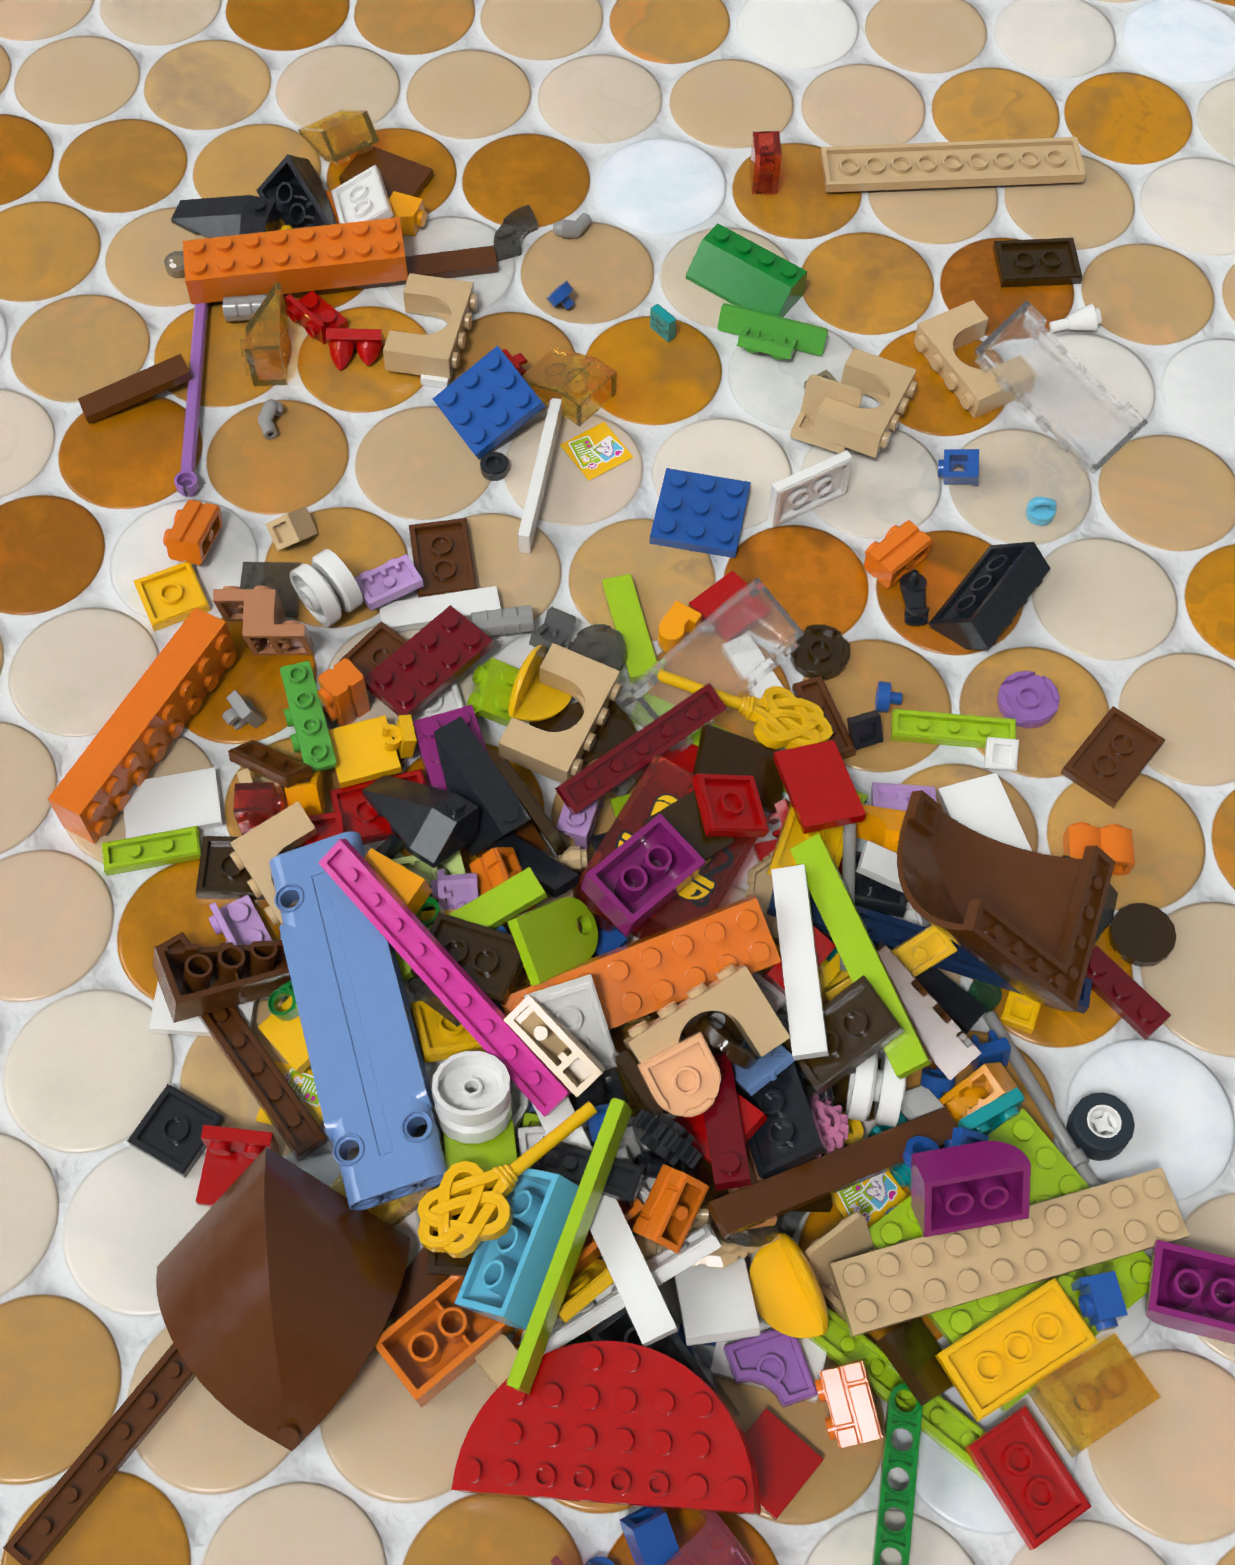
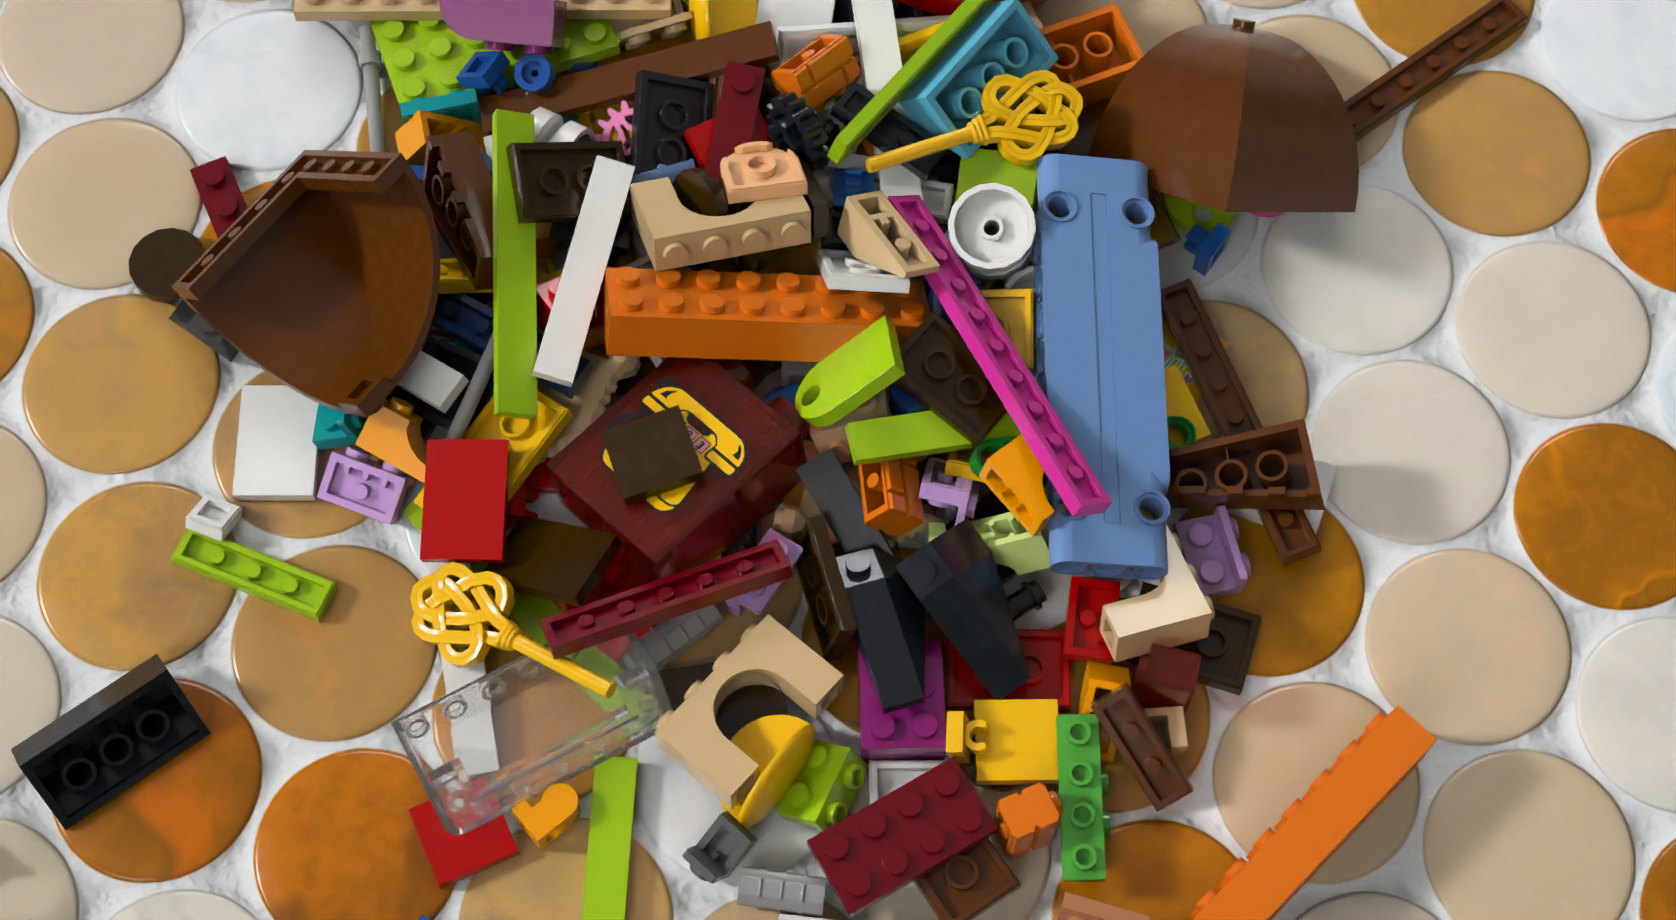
camera: 165 degrees left, 5 degrees up
(151, 850) = (1308, 695): lime tile -> none
(174, 803) = (1271, 749): white tile -> none
(174, 1130) = (1318, 352): black tile -> none
(227, 1157) = (1257, 286): red bracket -> none
(242, 712) = (1163, 851): light grey tile -> none
(602, 645) = (668, 808): clear smoke tile -> none
(642, 874) = (730, 395): magenta brick -> none
(730, 805) = (590, 472): red tile -> none
(817, 692) = (407, 653): reddish brown tile -> none
(821, 652) = (365, 733): dark brown tile -> none
(865, 729) = (369, 594): black tile -> none
(885, 697) = (320, 632): blue tile -> none
(897, 553) = (201, 842): orange brick -> none
(914, 596) = (208, 781): black piece -> none
(1028, 699) = (139, 587): medium lavender tile -> none
(1108, 1116) = (329, 82): black wheel -> none
(1112, 839) = (164, 365): orange brick -> none
(1113, 756) = (77, 482): reddish brown tile -> none

